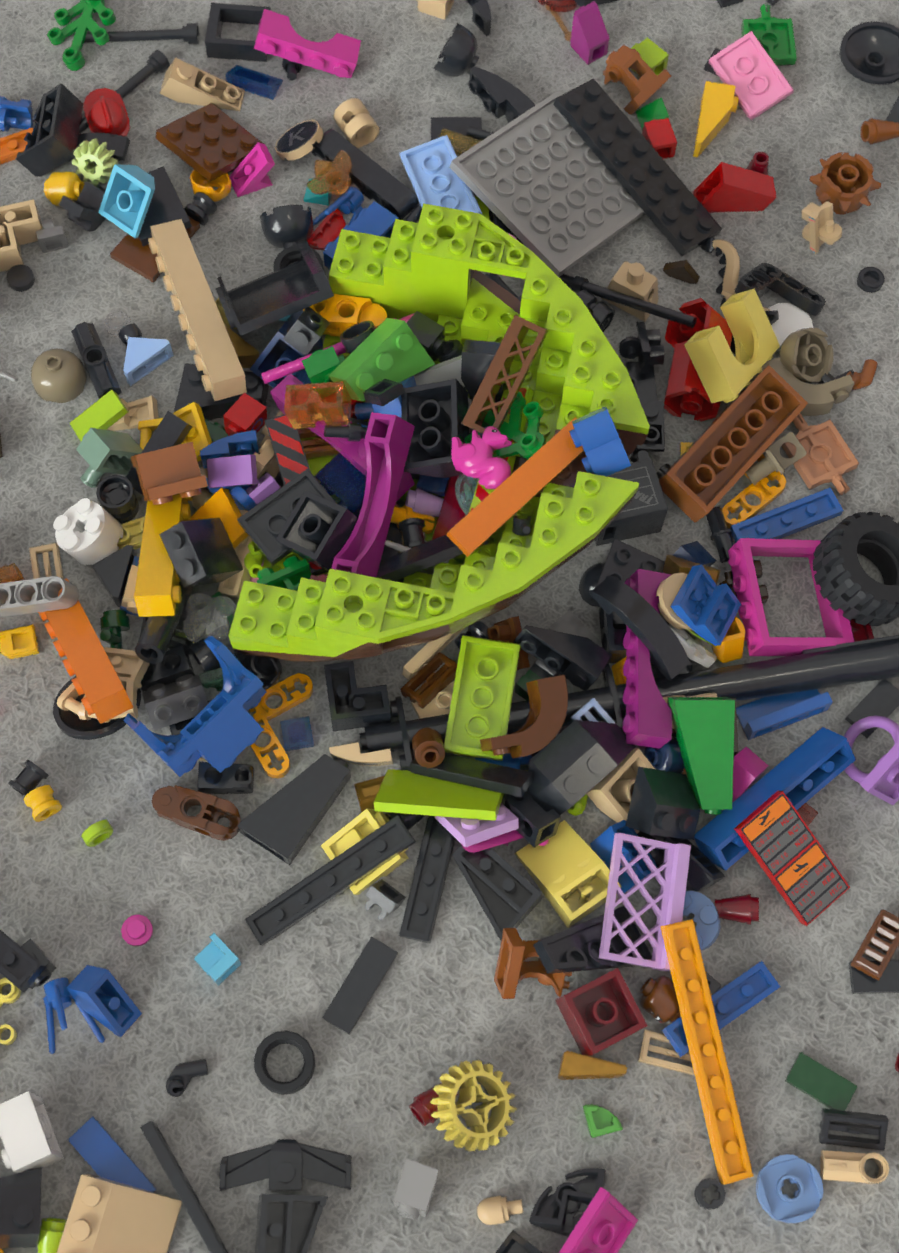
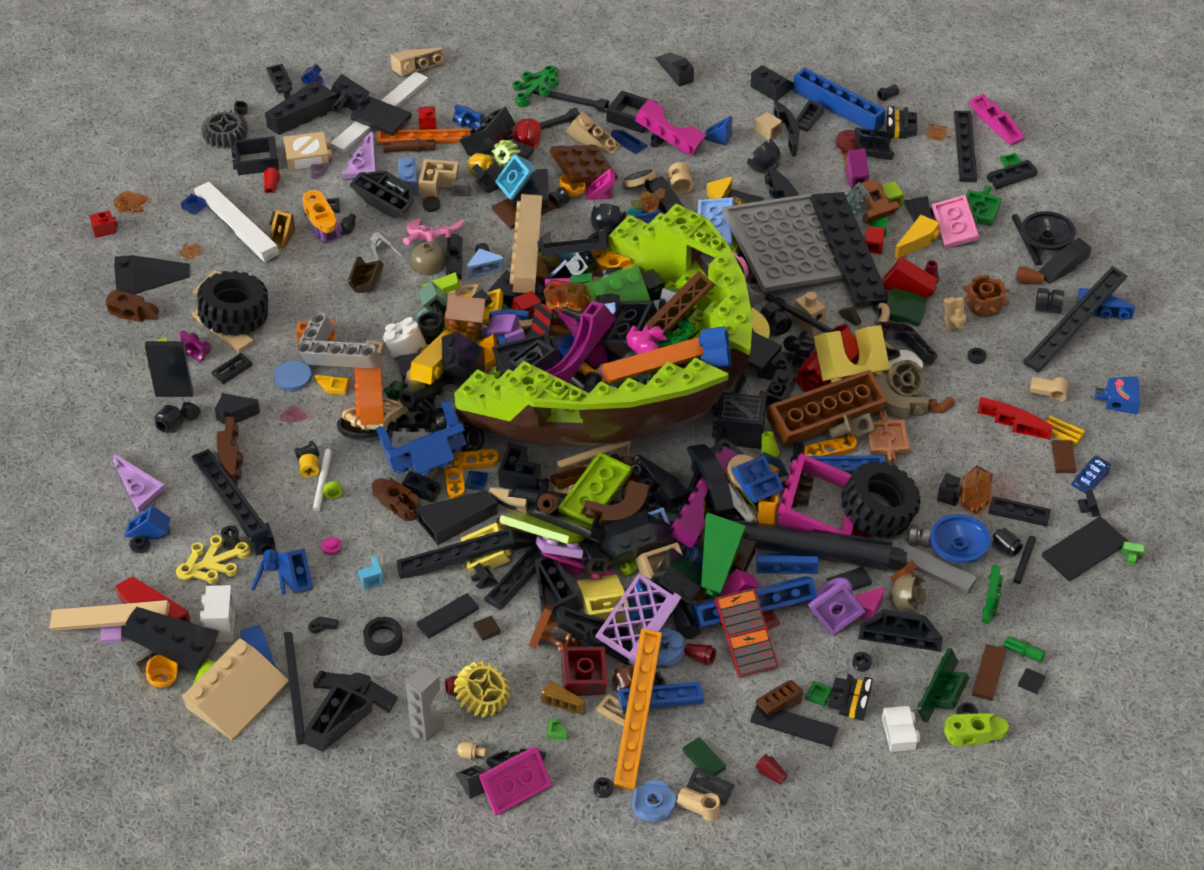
camera: 25 degrees right, 20 degrees down
(34, 336) = (422, 232): none -> bright pink bar
(72, 817) = (322, 480): none -> white bar
(373, 27) = (720, 132): none -> blue slope
(416, 125) = (719, 188): none -> yellow slope
(425, 984) = (486, 628): none -> dark brown tile
(607, 73) = (855, 206): none -> clear light blue slope
(678, 530) = (769, 444): none -> lime cone
(691, 68) = (918, 207): none -> black slope
(748, 231) = (906, 306): none -> dark green slope
(861, 86) = (1031, 249): none -> black bar

